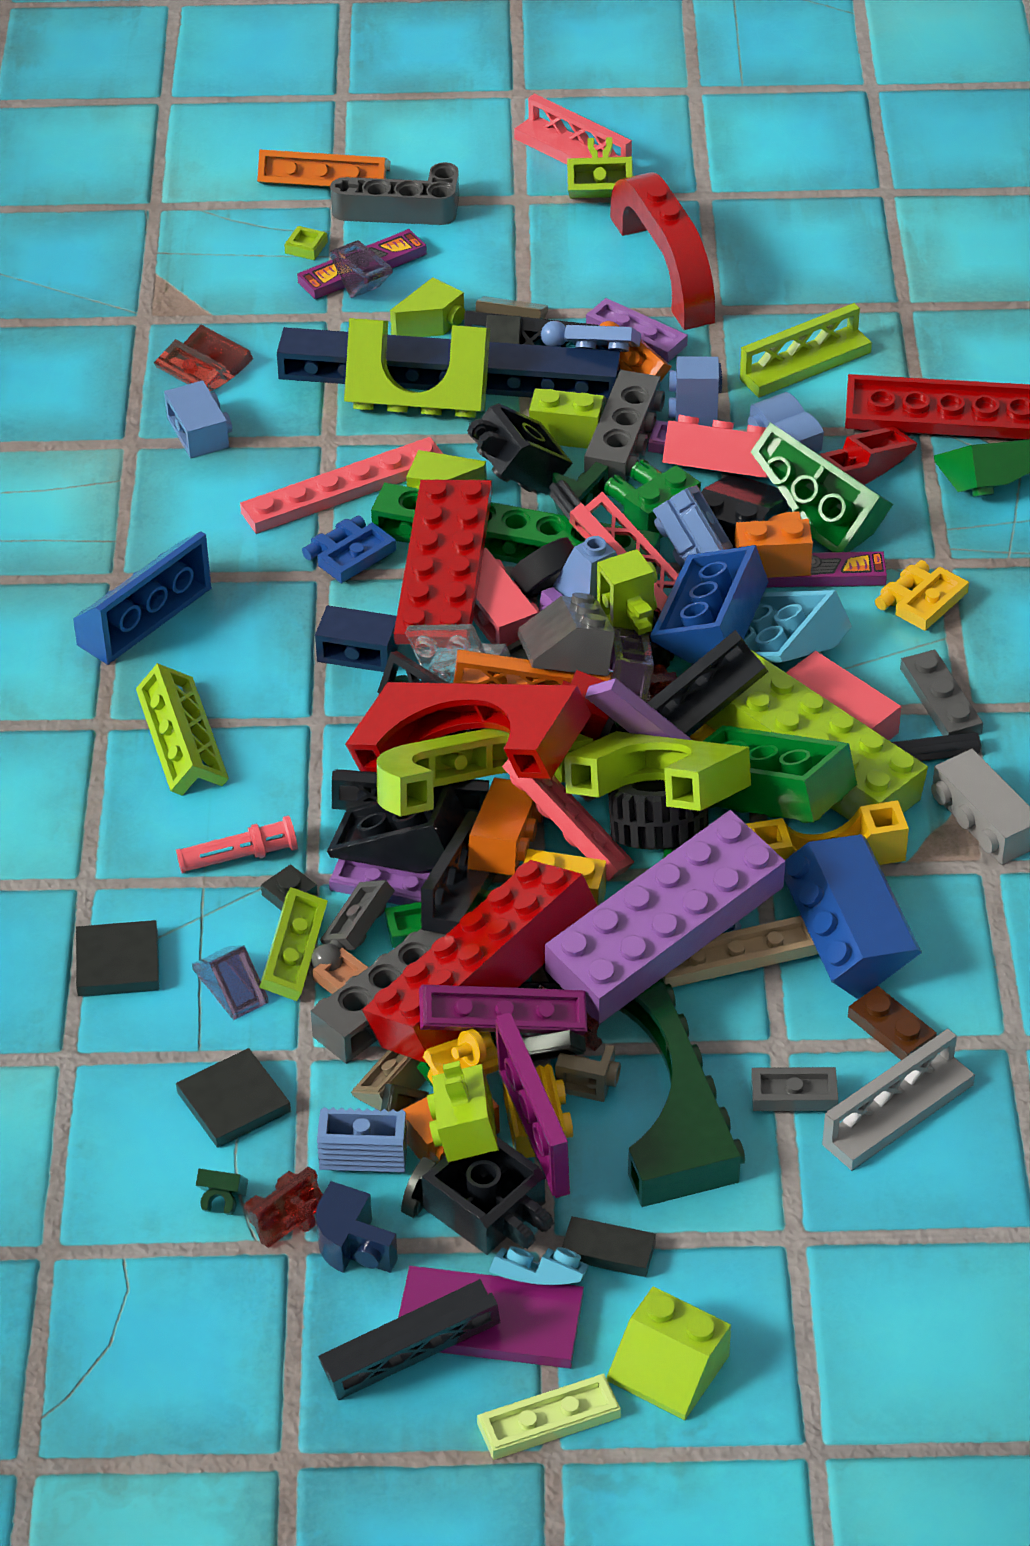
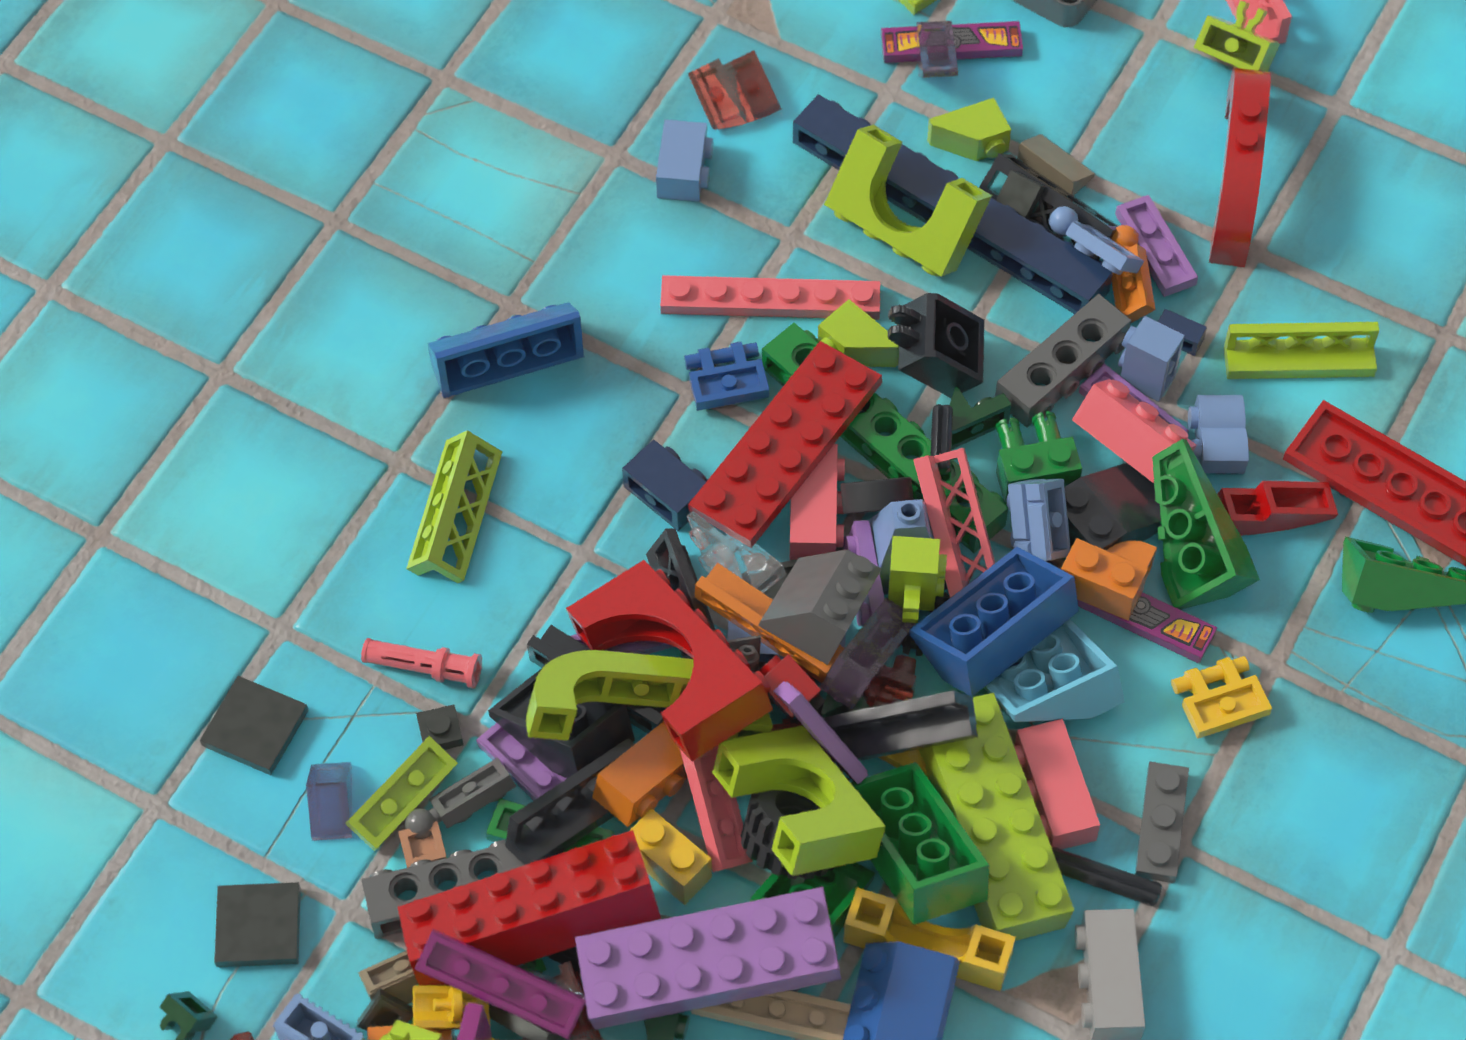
camera: 30 degrees right, 15 degrees up
(568, 415) = (1020, 315): lime slope -> none

